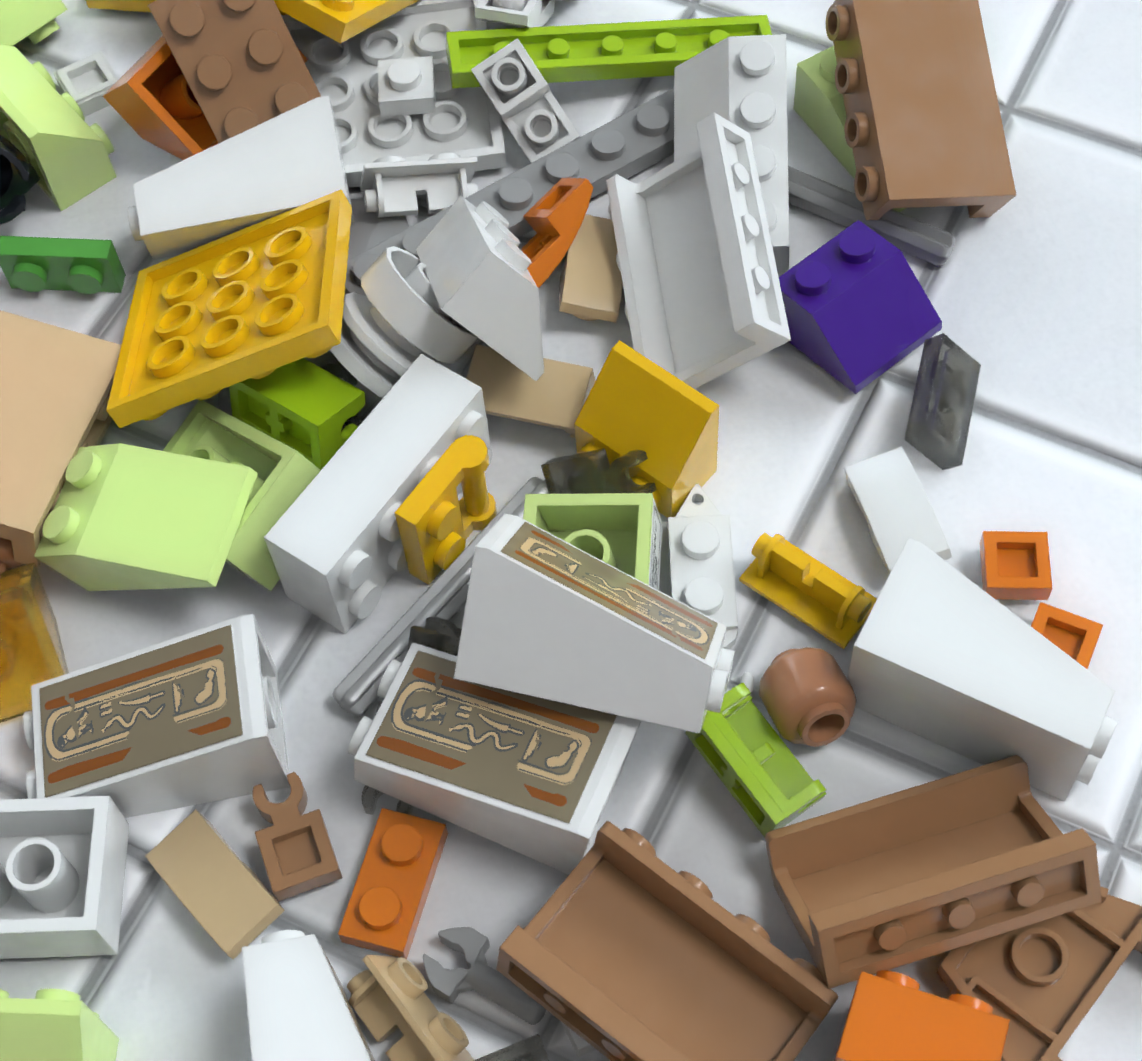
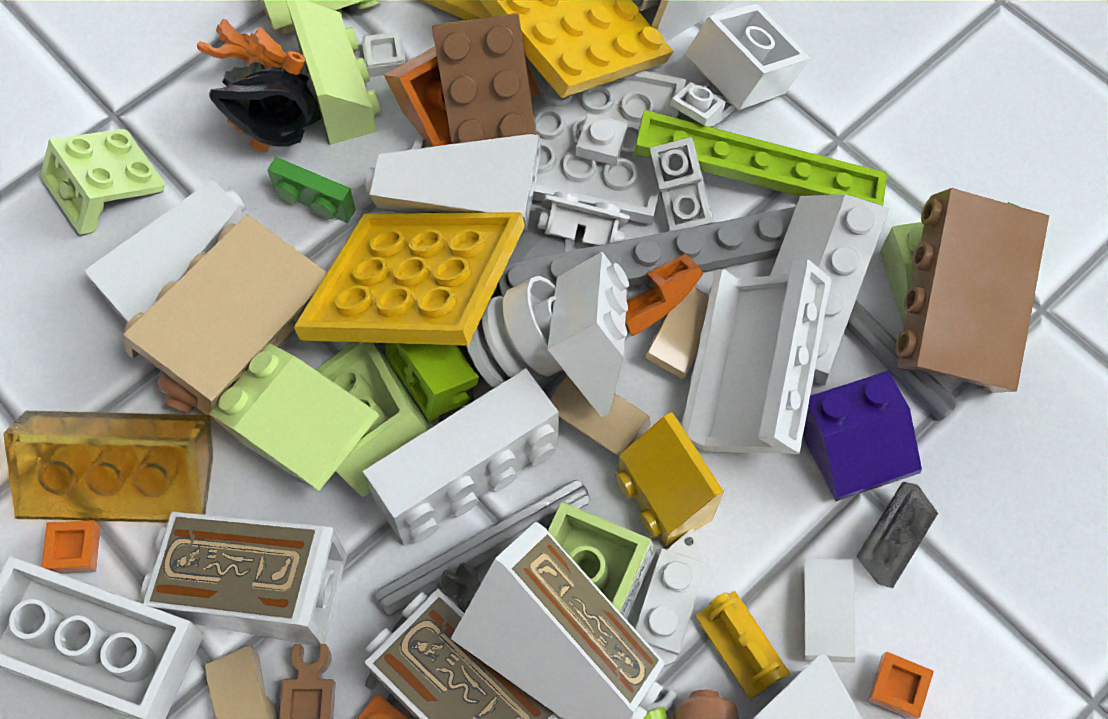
camera: 15 degrees right, 5 degrees up
(434, 520) = (494, 492): yellow plate -> none
(592, 474) = (614, 502): clear smoke plate -> none

